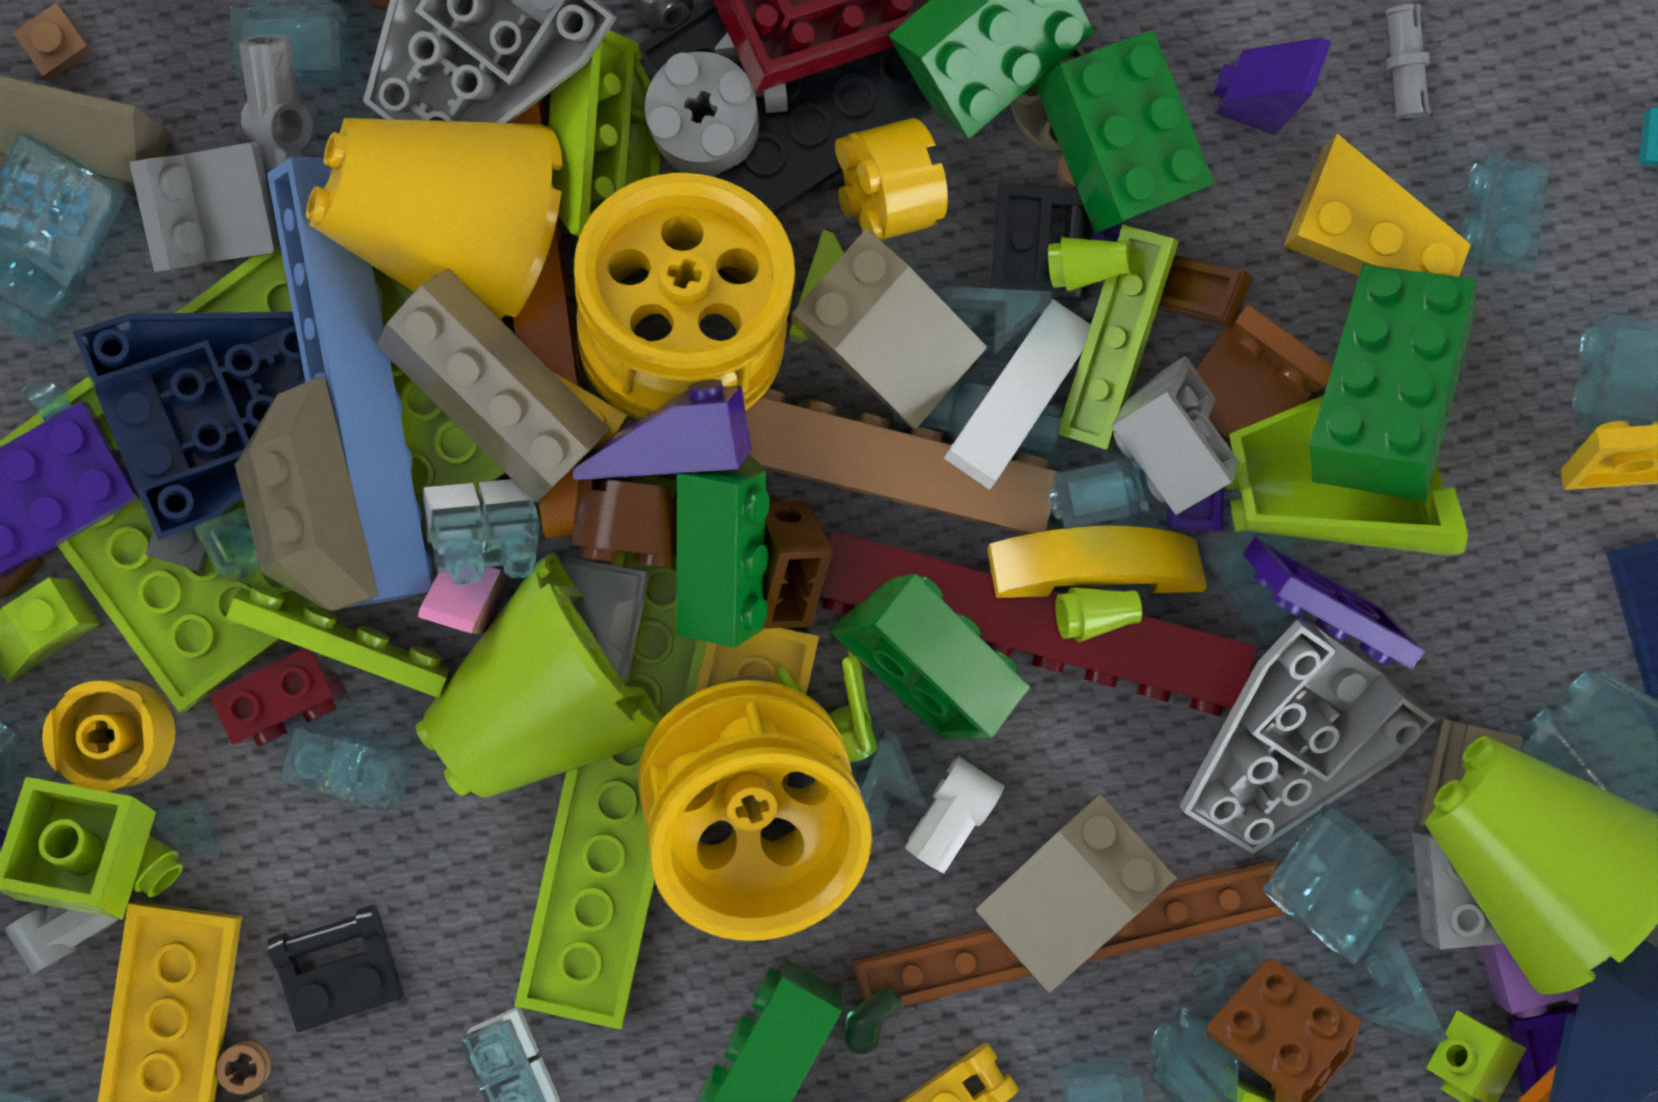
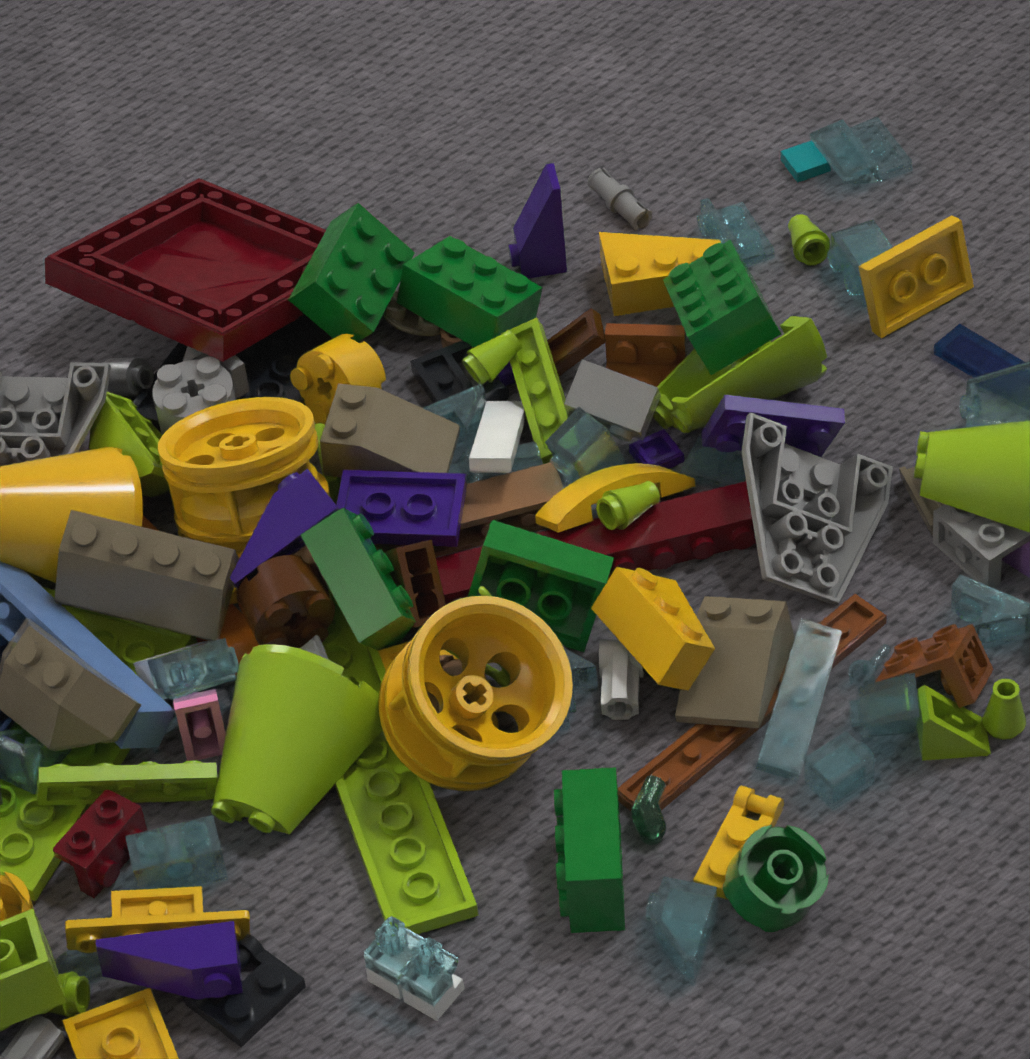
camera: 25 degrees left, 40 degrees down
(276, 933) = (180, 961): none -> dark purple slope
(286, 834) = (149, 912): none -> yellow bracket
(840, 446) = (406, 505): none -> dark purple plate
(1016, 819) = (655, 625): none -> yellow wedge
(1119, 973) = (798, 700): none -> clear light blue tile
(1339, 884) = (905, 578): clear light blue slope -> none
(1583, 284) = (808, 241): none -> lime cone

